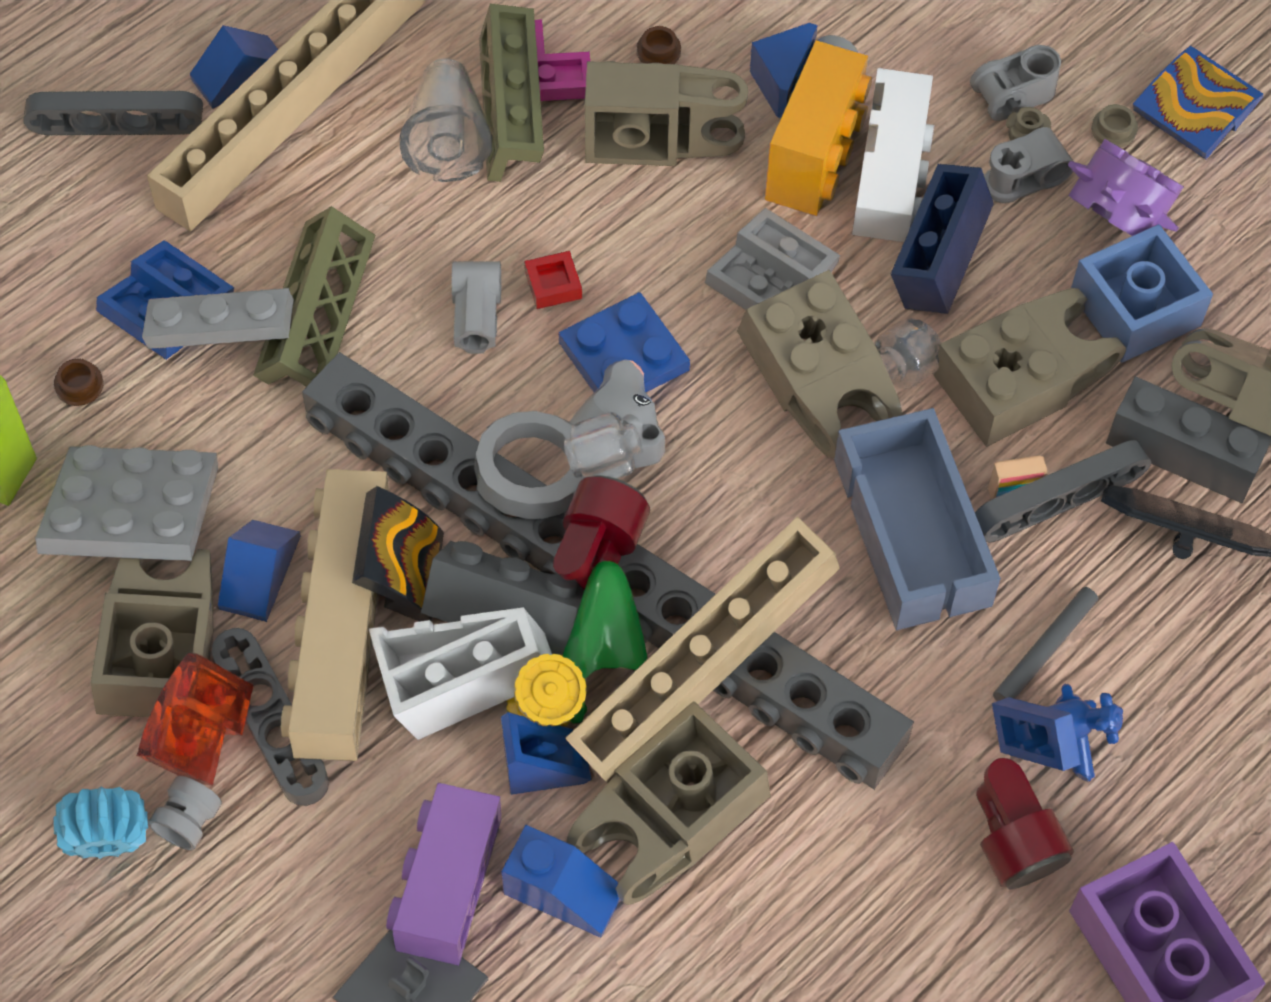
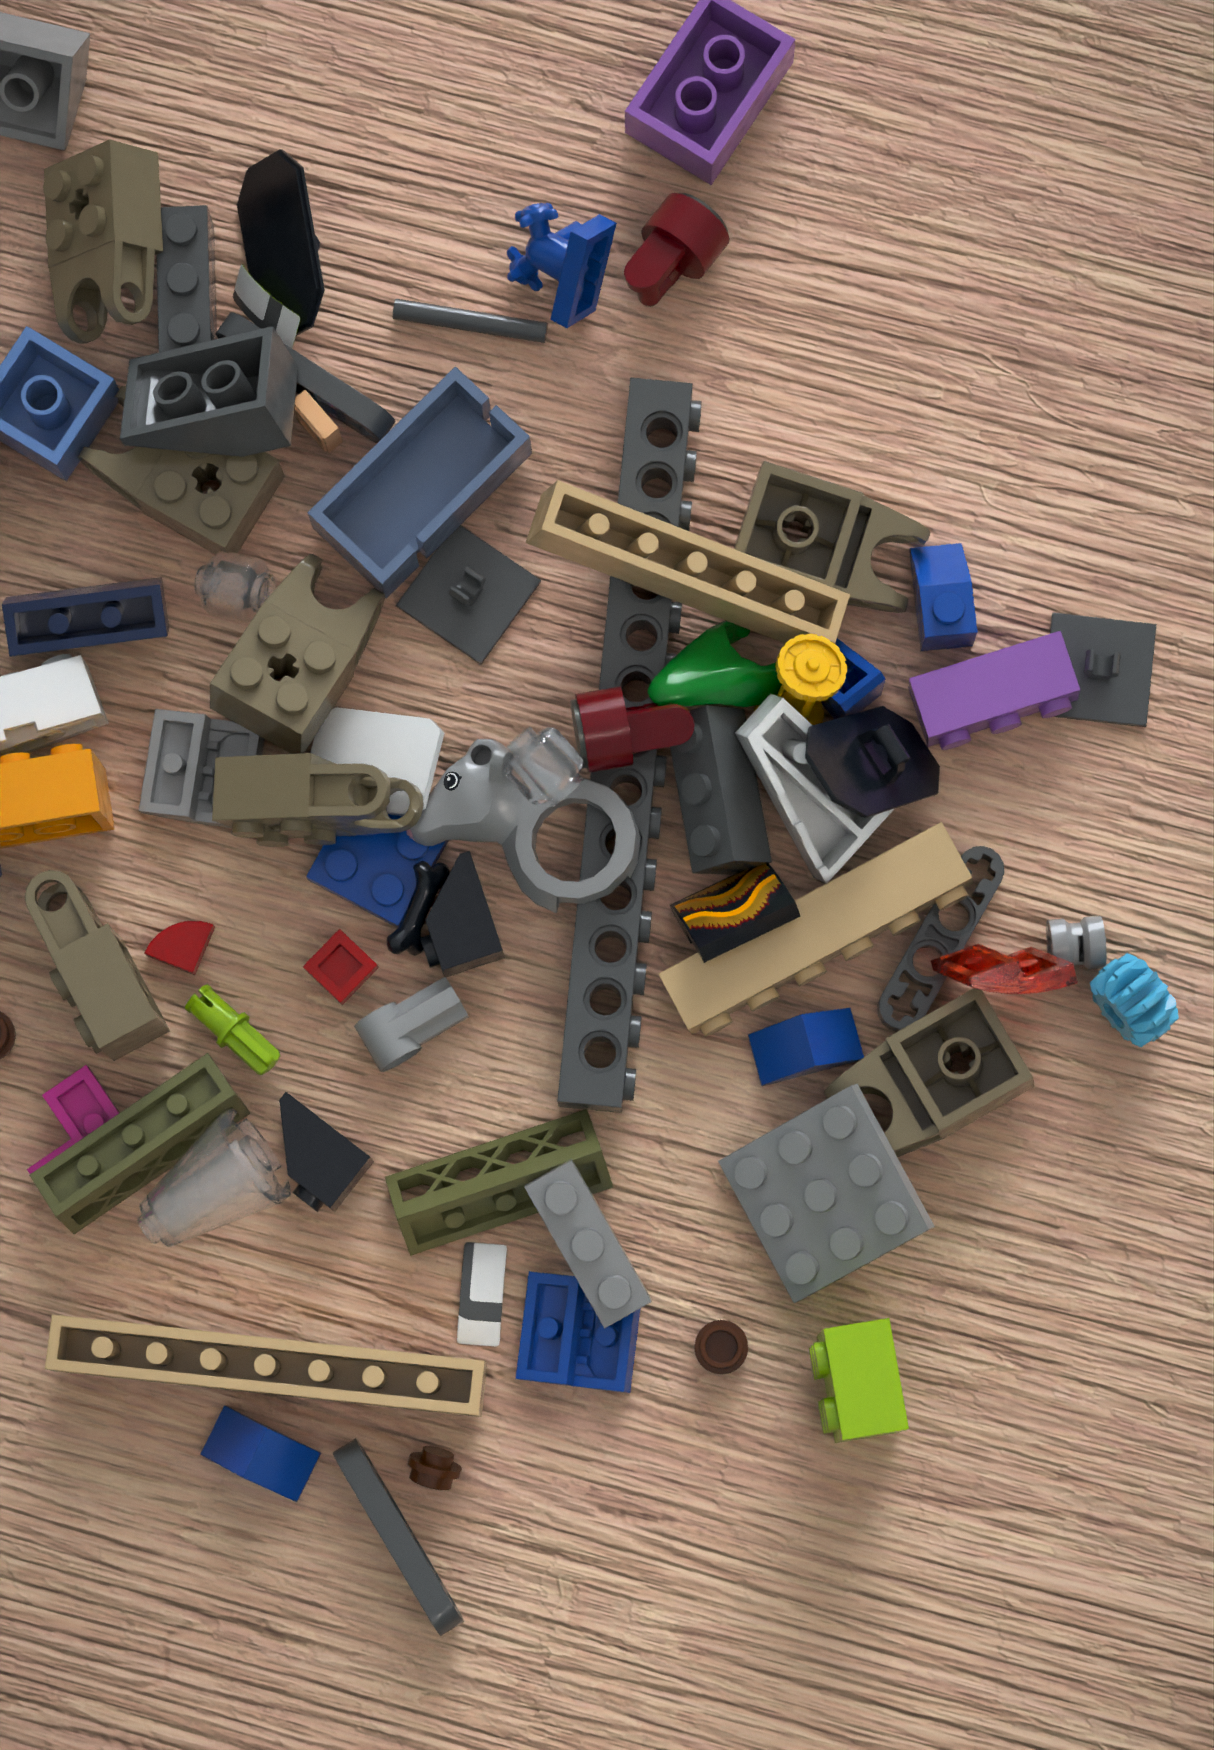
camera: 115 degrees left, 20 degrees up
(141, 155) = (434, 1468): none -> reddish brown plate
(245, 256) = (481, 1294): none -> white sticker
(423, 195) = (319, 1157): none -> black slope
(443, 710) = (872, 761): none -> black shield
(530, 374) = (461, 923): none -> black slope
(554, 190) = (233, 1030): none -> lime axle
(575, 363) = (408, 934): none -> black piece
(642, 193) = (181, 945): none -> red tile
(693, 293) = (306, 799): none -> dark tan brick
(698, 373) = (394, 743): none -> white piece
(815, 502) = (468, 593): none -> dark grey piece
(1072, 387) = (213, 396): none -> dark grey slope
(1118, 486) = (264, 309): none -> white sticker

